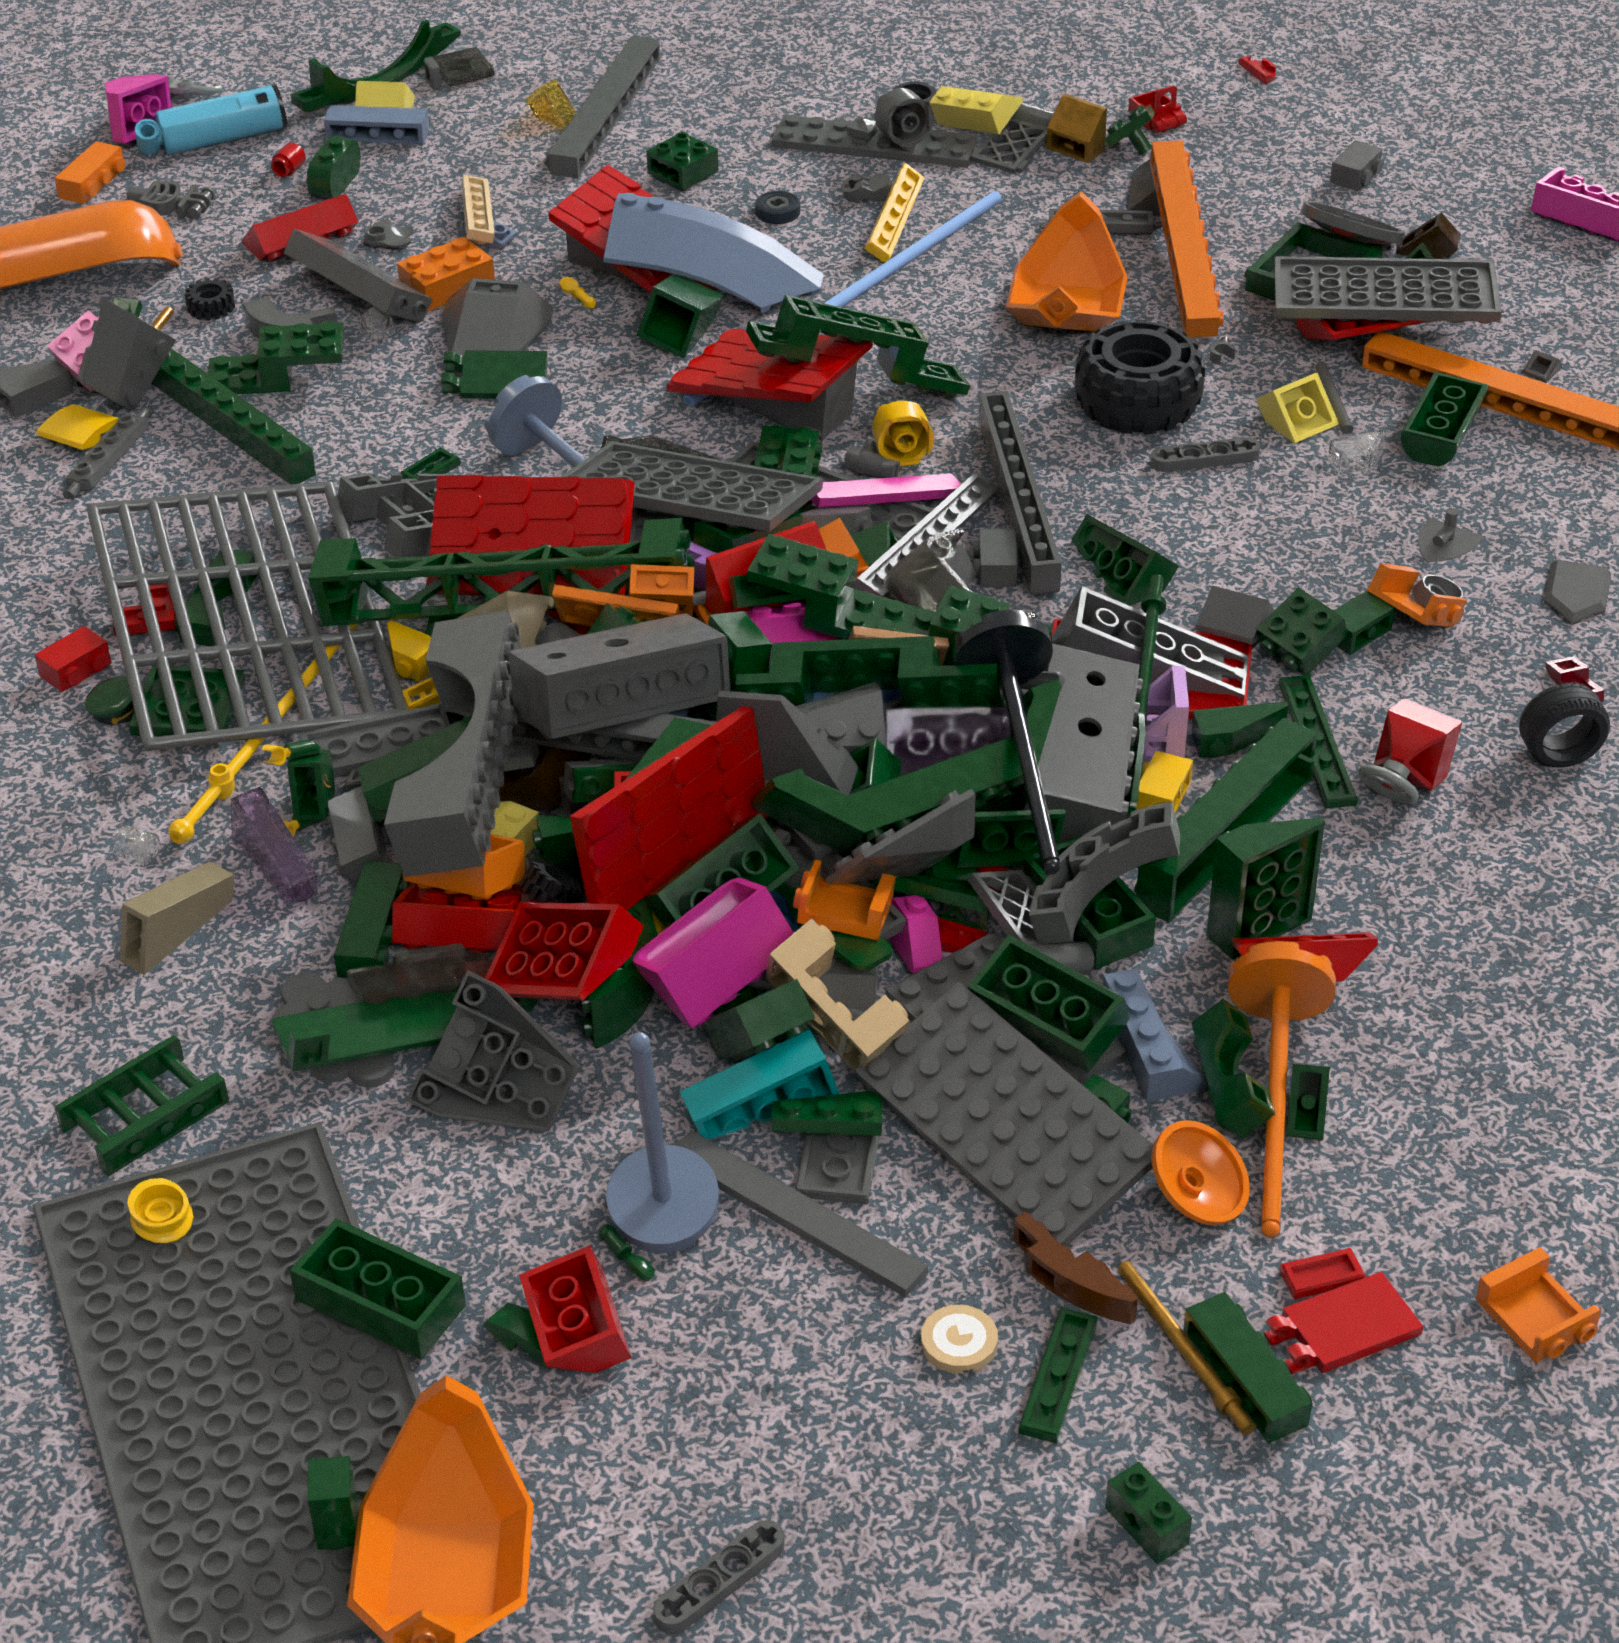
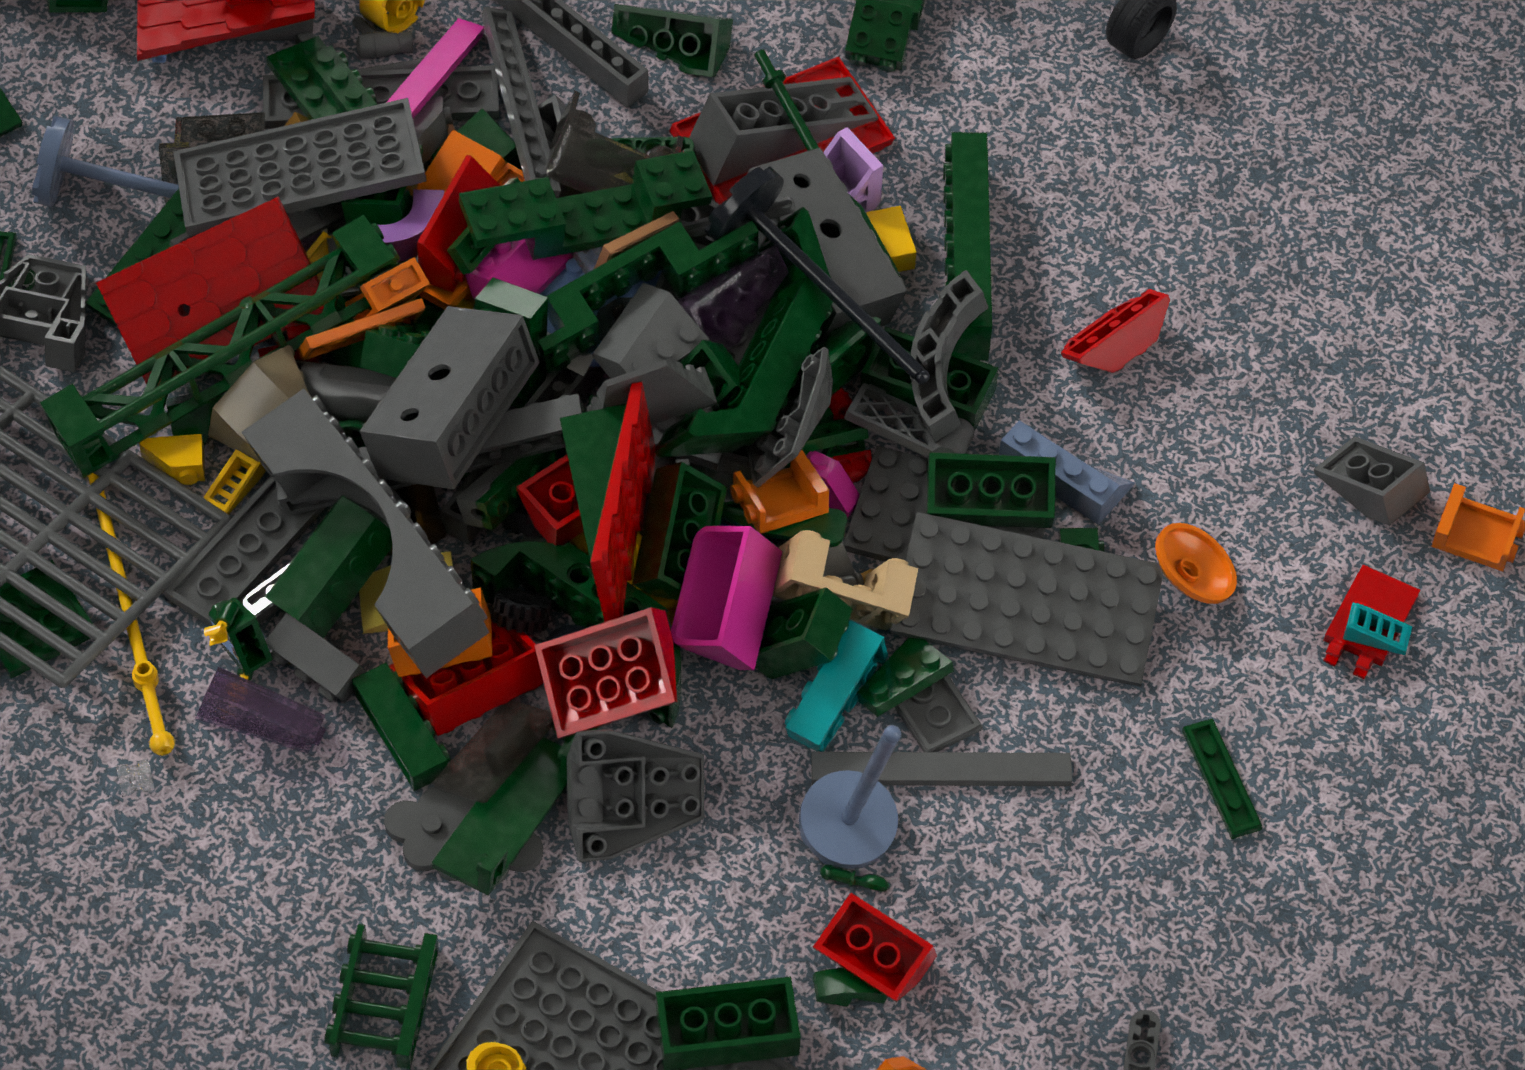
camera: 40 degrees left, 15 degrees up
(171, 913) = (239, 821): dark tan slope -> none
(959, 1339) = (1136, 794): tan tile -> none
(996, 558) = (573, 75): dark grey brick -> none
(1077, 1280) = (1181, 700): reddish brown slope -> none
(1148, 1512) = (1368, 842): dark green brick -> none
(1224, 1397) = (1342, 726): pearl gold bar -> none
(1233, 615) = (814, 46): dark grey slope -> none
(1234, 728) = (899, 151): dark green slope -> none
(1238, 1098) = (1118, 441): dark green arch -> none
(1248, 1366) = (1339, 693): dark green brick -> none
(1263, 880) = (1056, 298): dark green slope -> none
(1282, 985) = (1132, 374): orange piece -> none
(1307, 1100) = (1210, 455): dark green slope -> none
(1321, 1273) = (1324, 589): red tile -> none
(1325, 1307) = (1371, 617): none -> teal slope
(1328, 766) = (950, 119): dark green tile -> none
(1413, 748) = (1052, 104): red piece -> none
(1463, 1208) = (1375, 479): none -> dark grey slope

